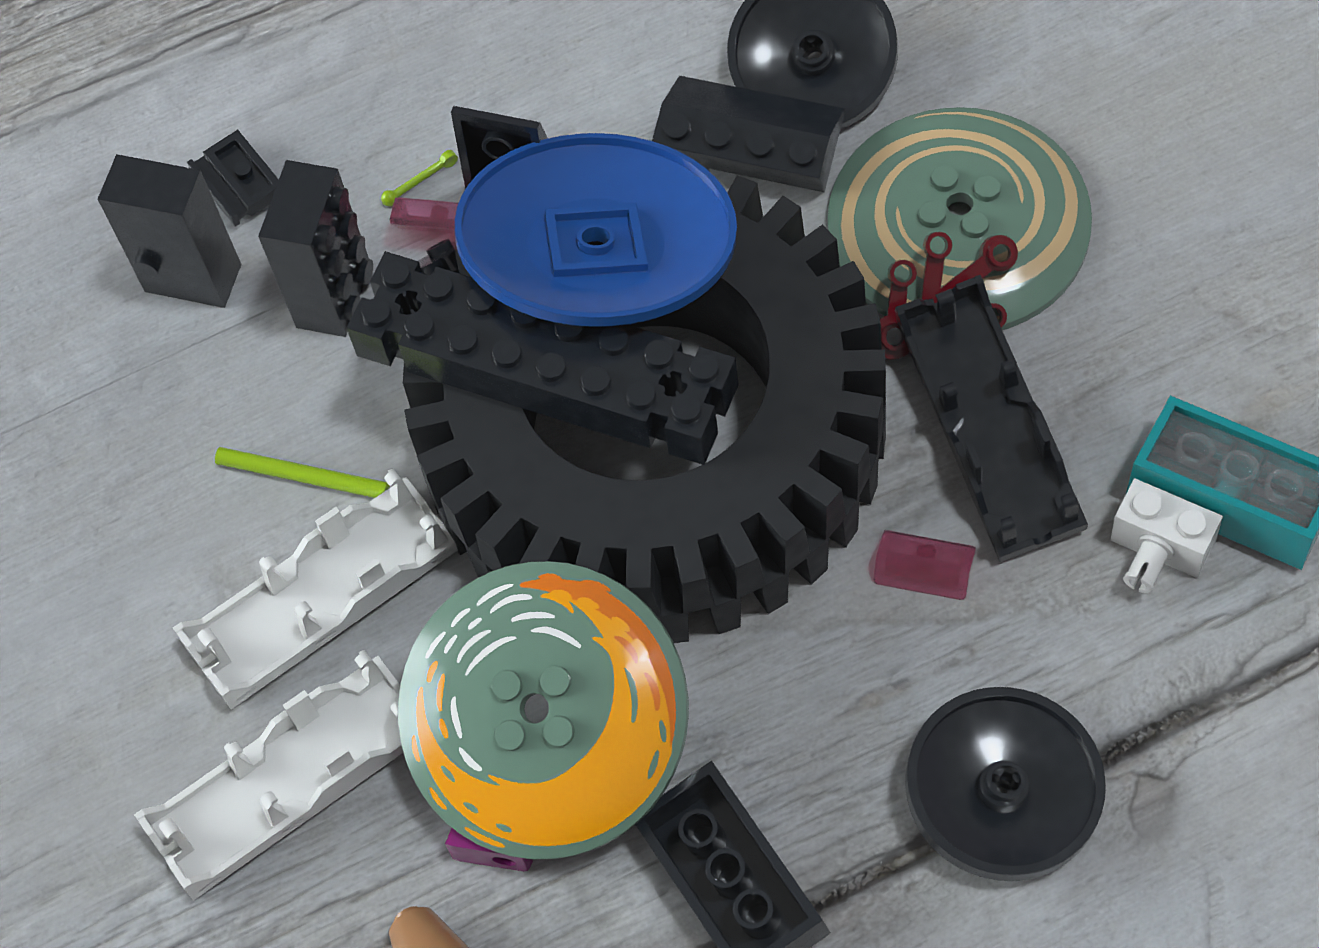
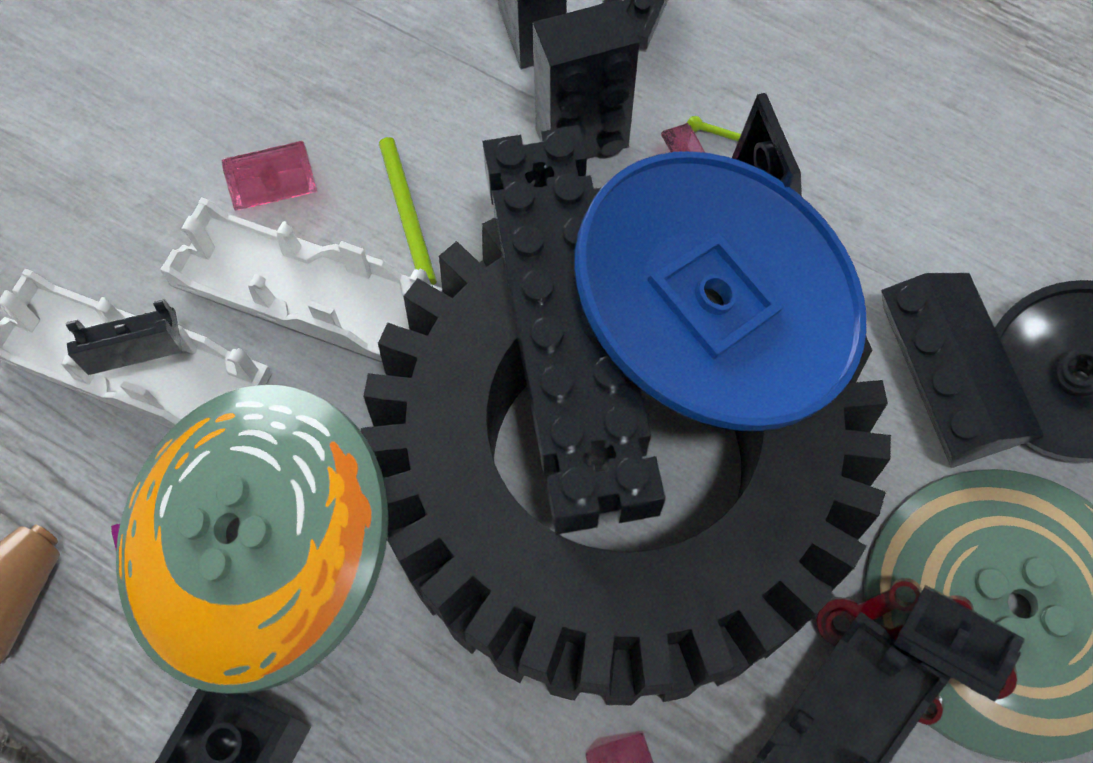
camera: 50 degrees right, 5 degrees up
(181, 570) = (269, 175): none -> clear pink slope
(290, 732) = (125, 340): none -> black hinge
(959, 253) = (960, 642): none -> black hinge

